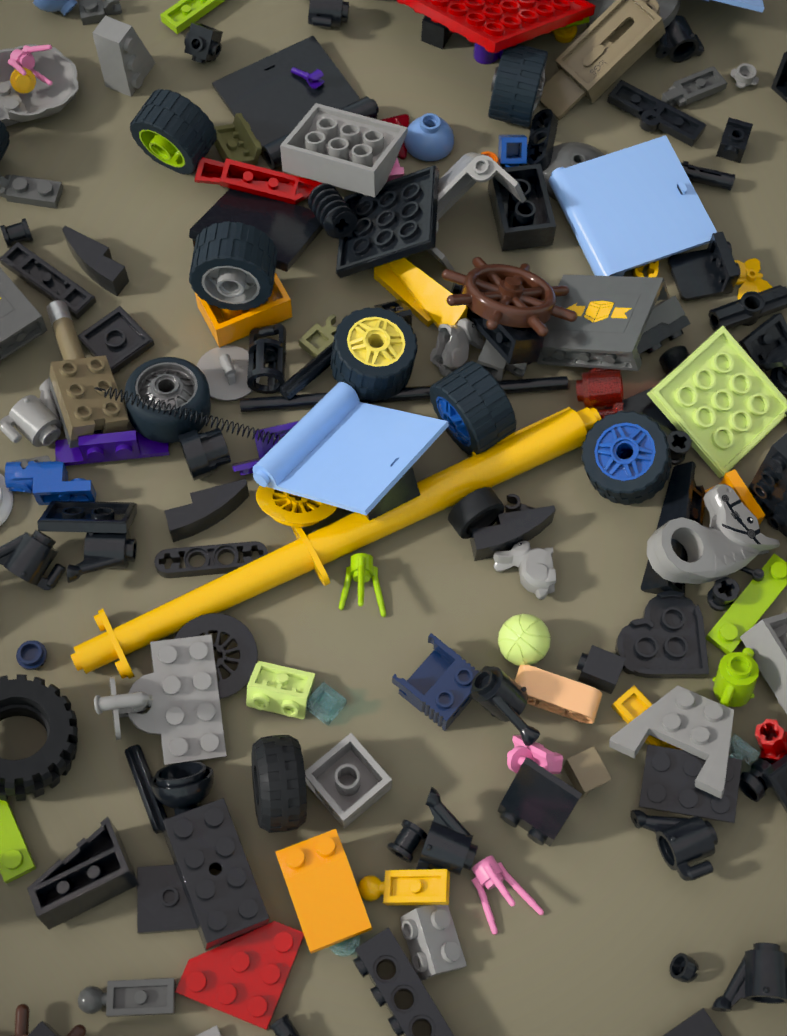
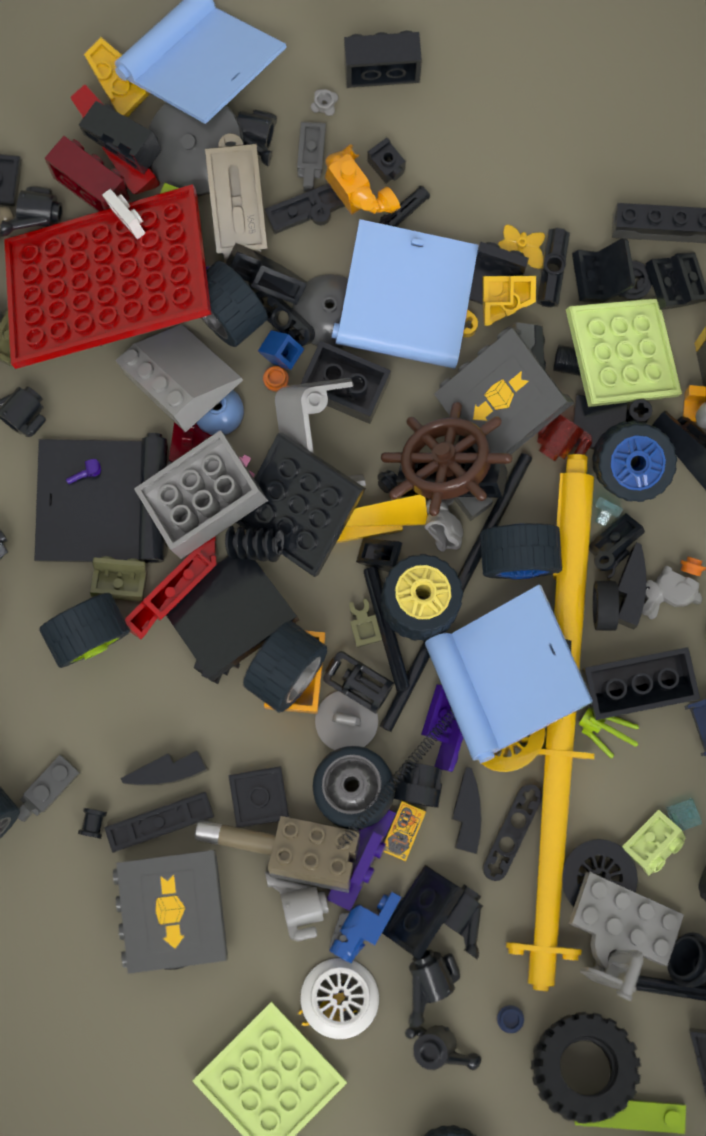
camera: 55 degrees left, 15 degrees up
(156, 469) = (403, 831): none -> tile
(425, 581) = (641, 683): none -> black slope
(433, 86) = (179, 374): none -> light grey slope
(542, 492) = (615, 541): none -> black hinge
(564, 471) = (607, 509): none -> clear light blue tile
(565, 101) = (266, 274): none -> black slope
(569, 573) = (692, 566): none -> orange plate
(689, 116) = (354, 187): none -> light orange torso
(696, 284) = (506, 295): none -> yellow slope

